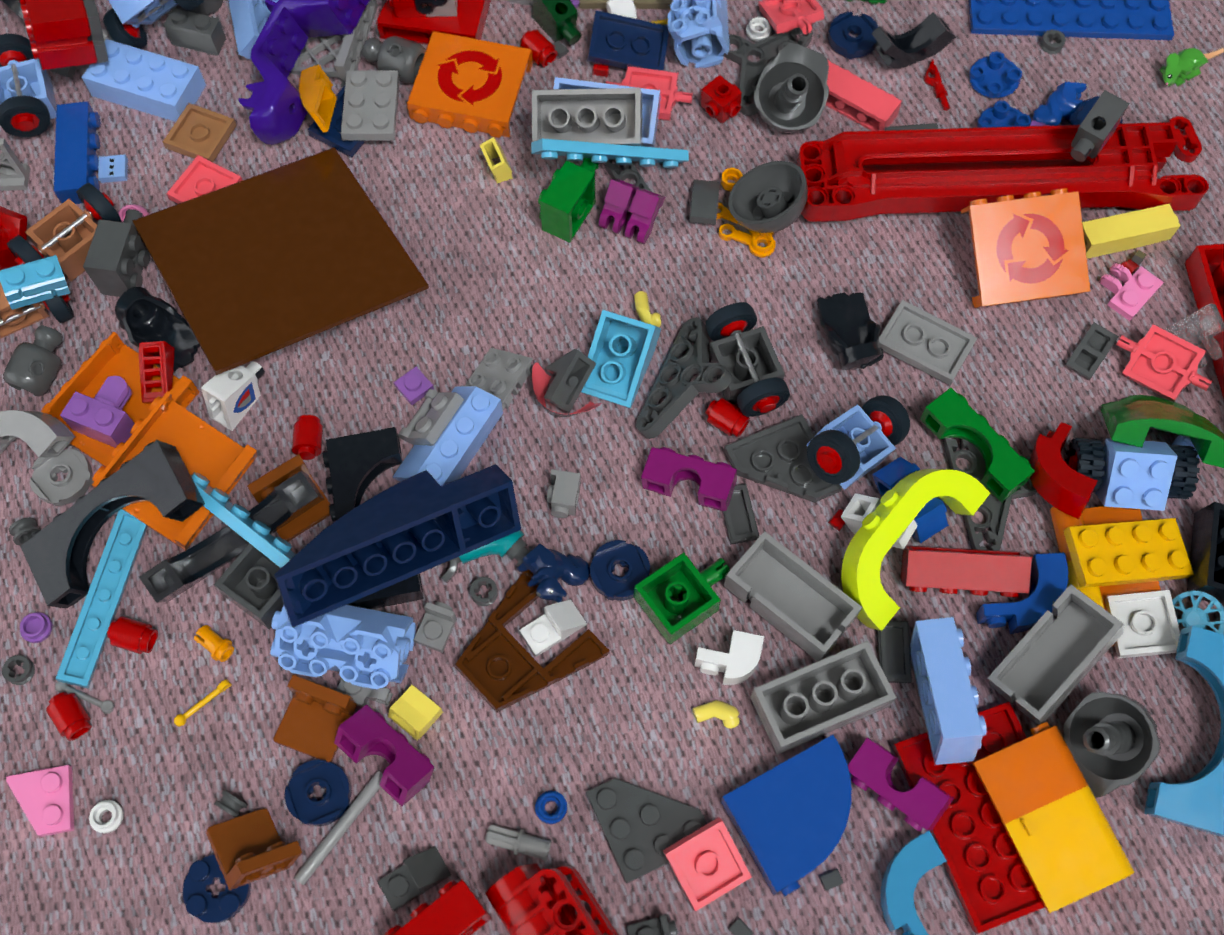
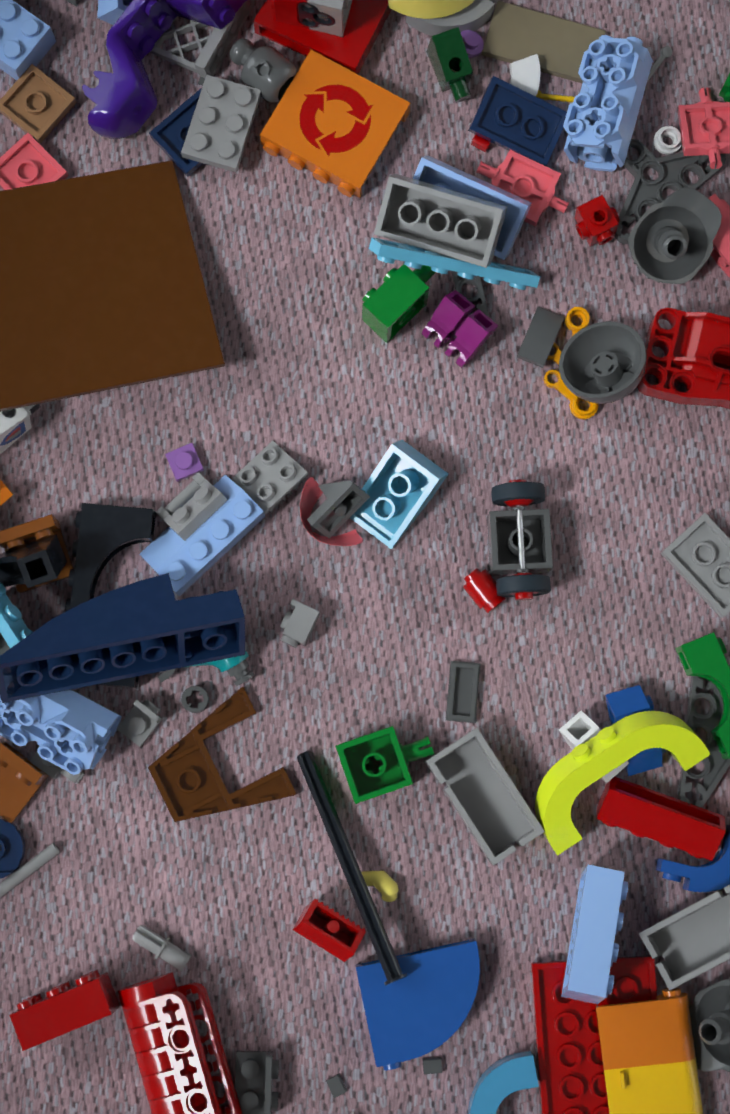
camera: 15 degrees right, 15 degrees up
(307, 437) = (66, 490): red brick -> none
(317, 95) = (167, 99): light orange slope -> none
(369, 734) = (53, 809): magenta arch -> none
(414, 712) = (100, 799): light yellow piece -> none
(414, 878) = (60, 951): dark grey slope -> none
(491, 150) = (331, 213): light yellow piece -> none
(542, 49) = (421, 96): red brick -> none
(546, 797) = (190, 924): blue plate -> none
(551, 566) = (265, 695): dark blue animal -> none
(554, 626) = (250, 754): white slope -> none
(560, 48) = (443, 102): dark grey piece -> none
(604, 564) = (316, 707): dark blue plate -> none
(641, 825) = (280, 969): dark grey plate -> none
(643, 309) = (437, 446): light yellow arm -> none
(667, 468) = (405, 627): magenta arch -> none
(680, 390) = (444, 547): dark grey beam -> none
(684, 768) = (329, 930): none -> red brick
(688, 705) = (350, 868): none -> black axle
(707, 864) = (323, 1021): coral plate -> none
(737, 663) = (416, 842): white brick -> none
(780, 460) = (527, 650): dark grey plate -> none
(822, 697) = (479, 902): light grey brick -> none
(836, 521) = (556, 725): red piece -> none
(850, 330) = (639, 530): black hair -> none
(858, 440) = (600, 660): brick -> none
(873, 770) = (531, 1030): magenta arch -> none
(895, 652) = (565, 876): dark grey tile -> none

